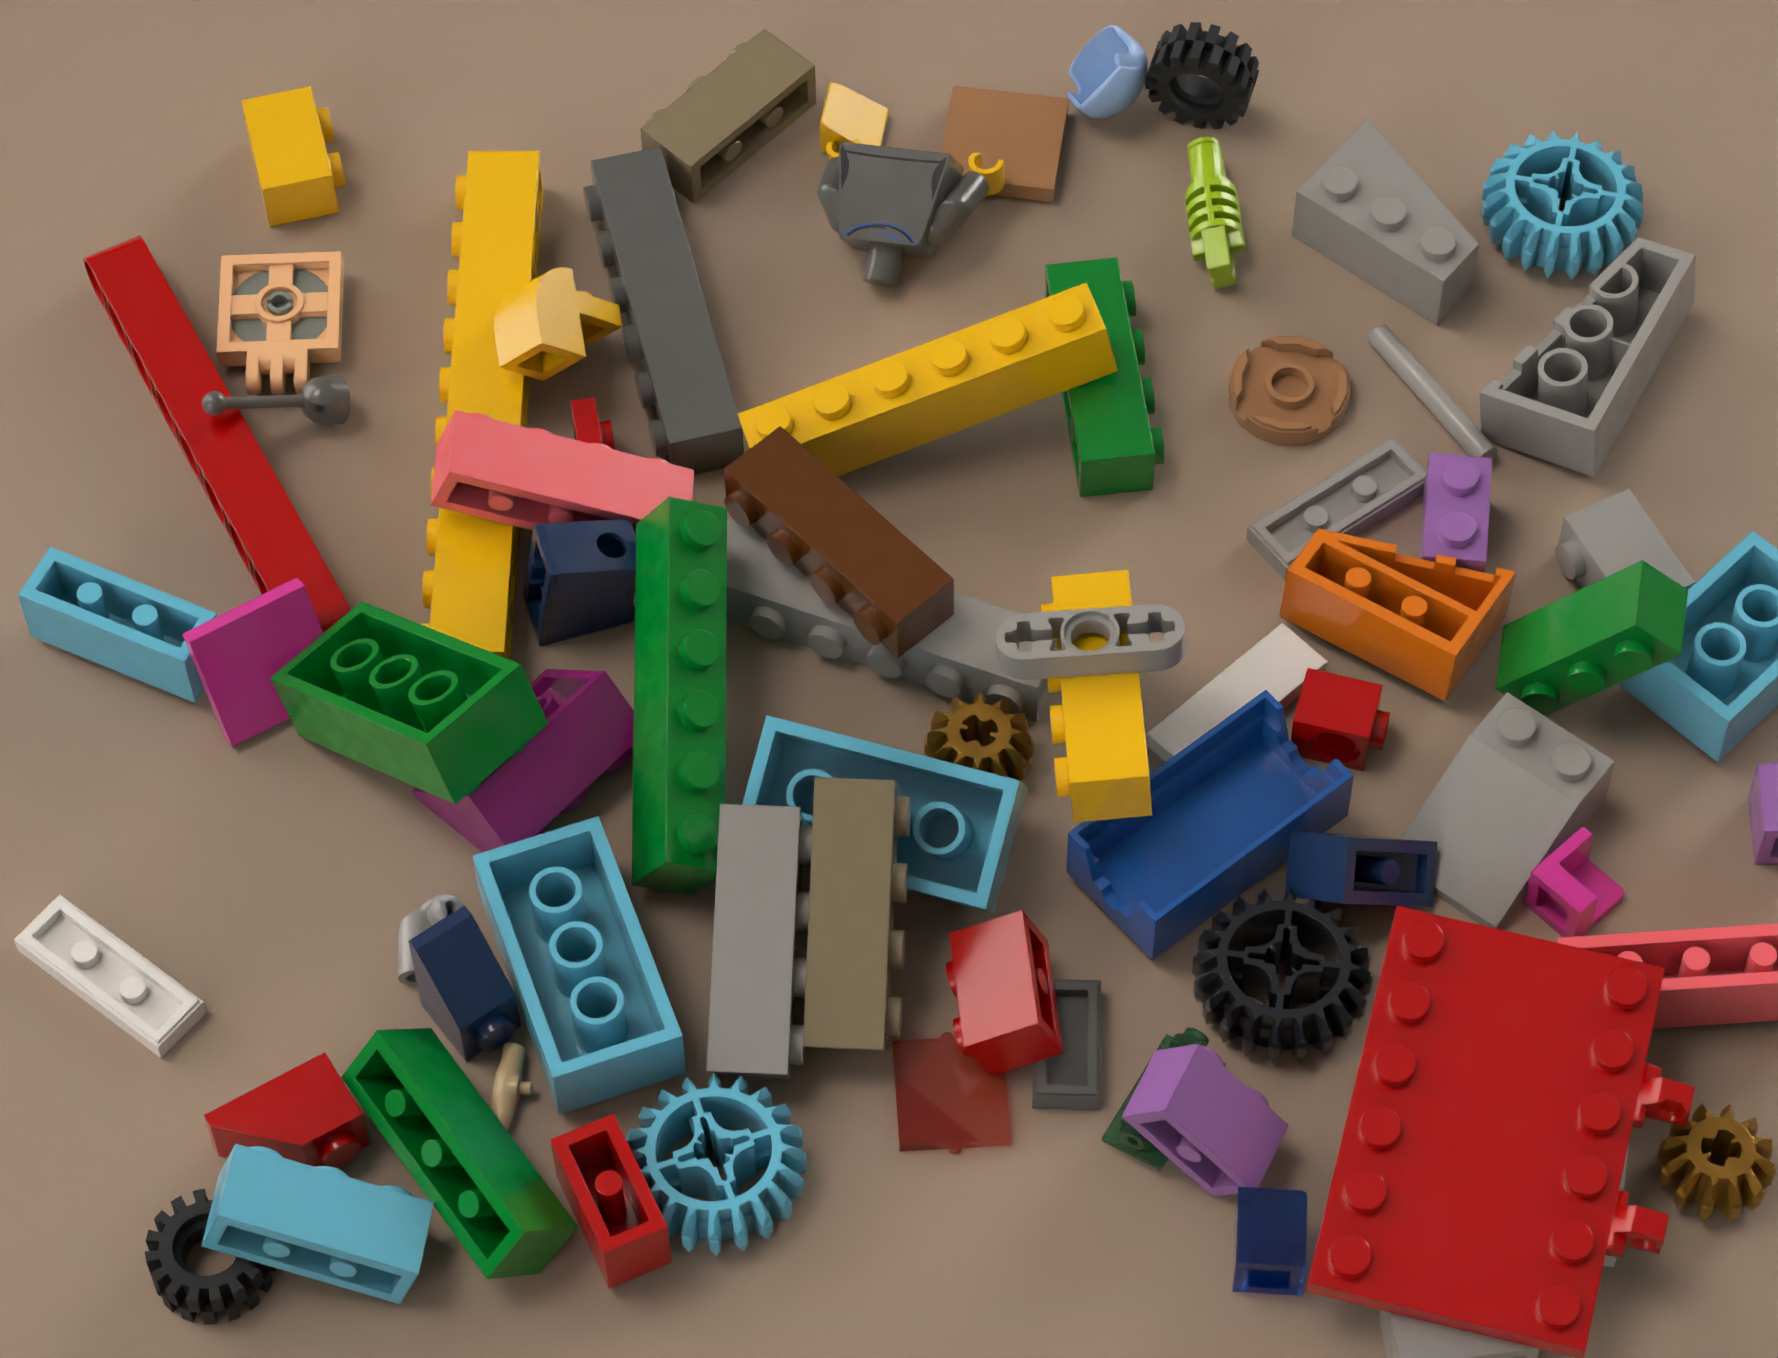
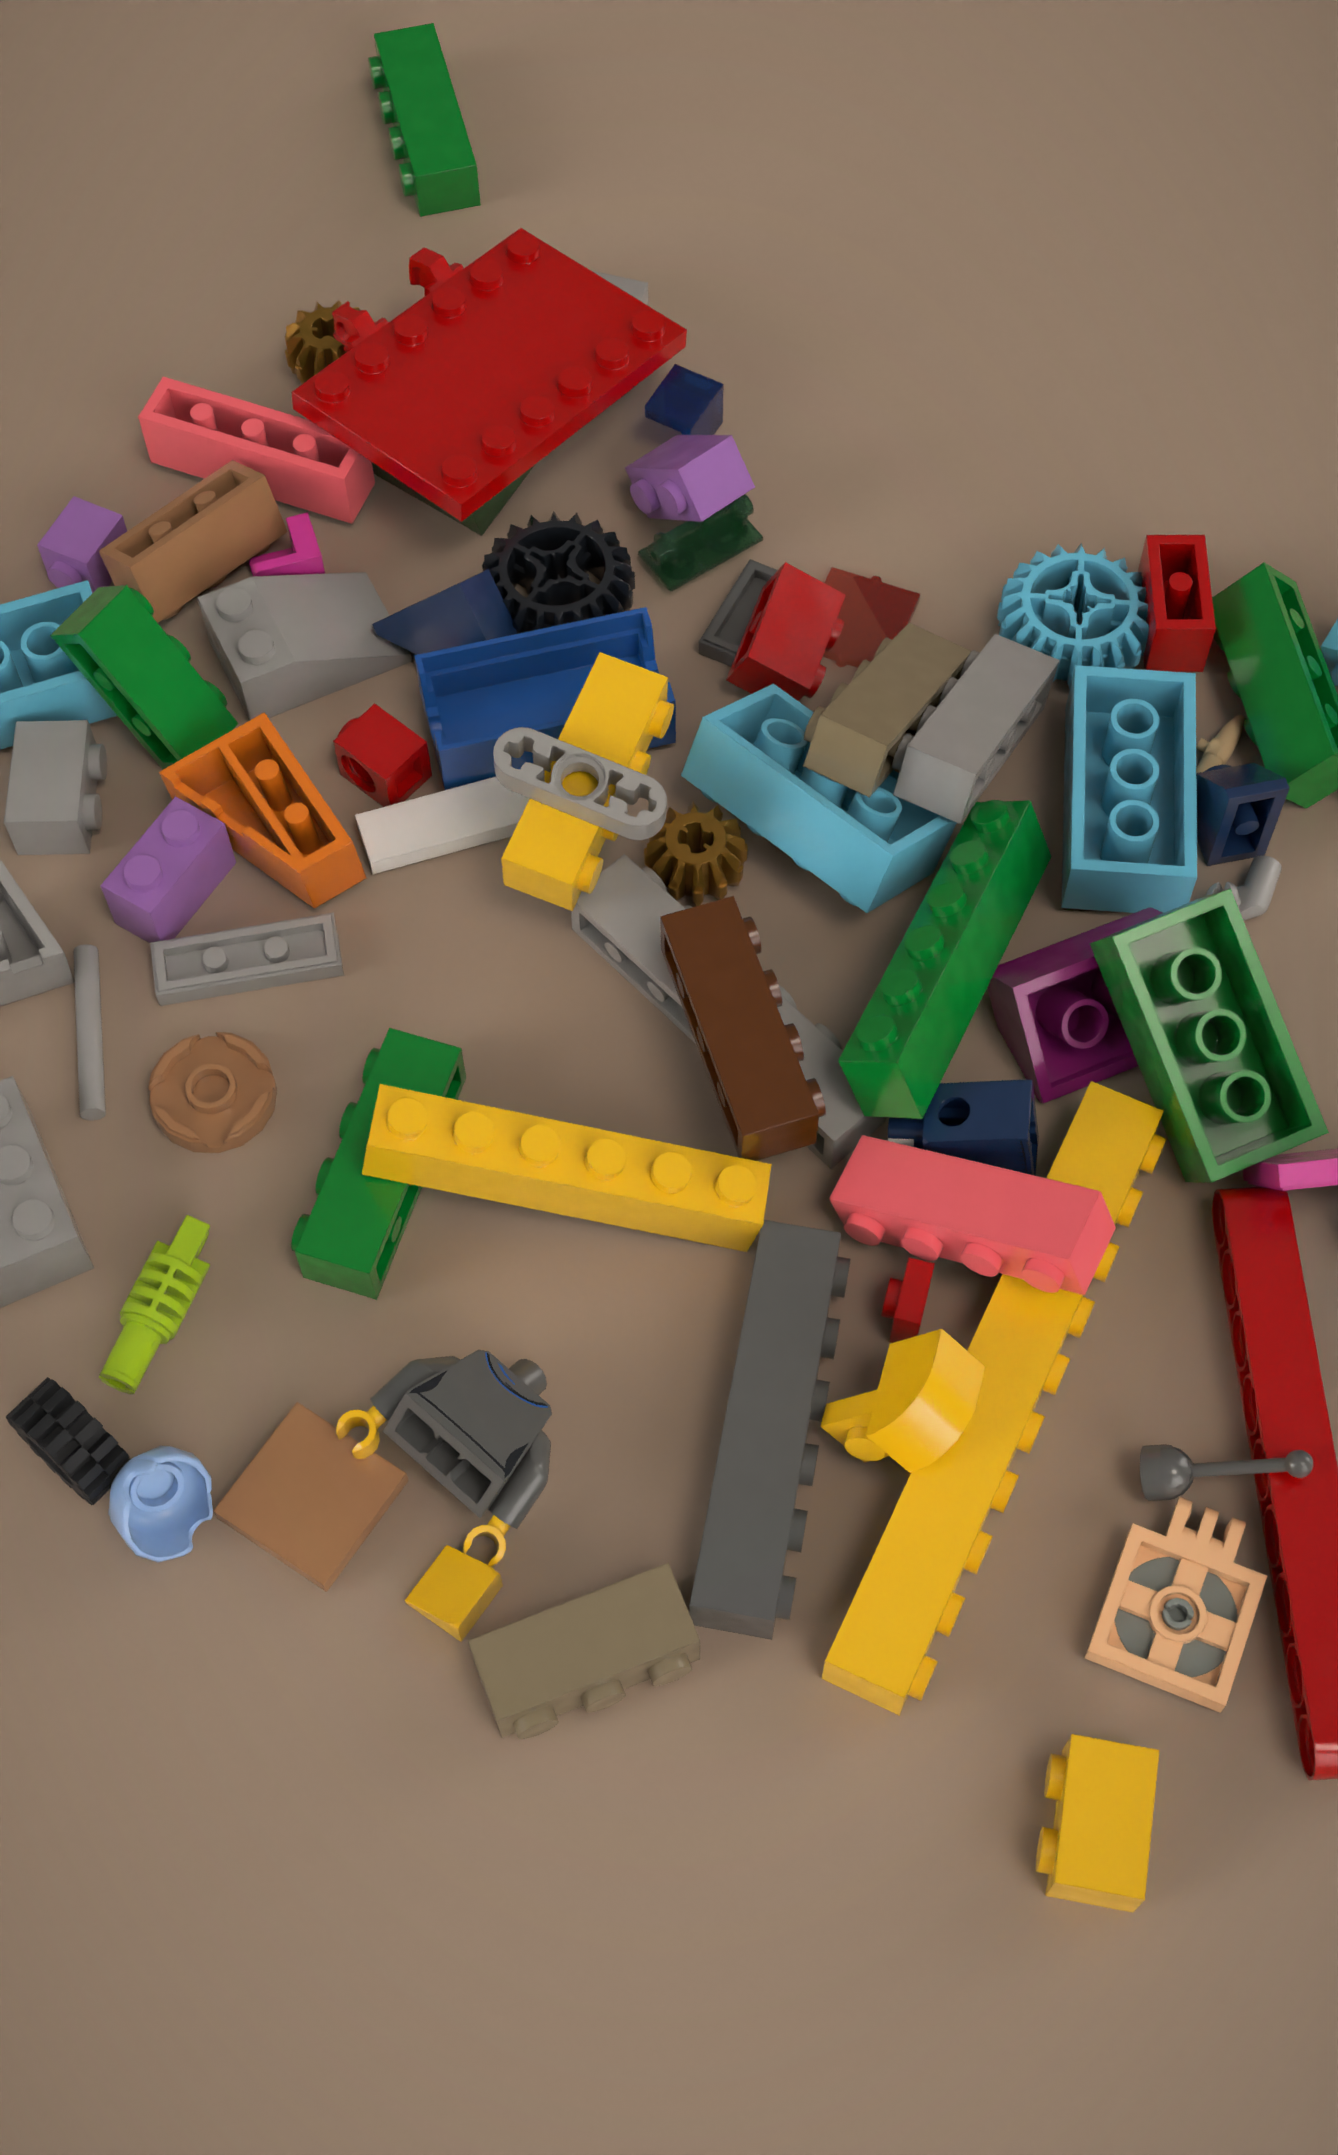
camera: 155 degrees left, 5 degrees up
(1677, 841) = (196, 539): none -> medium nougat brick

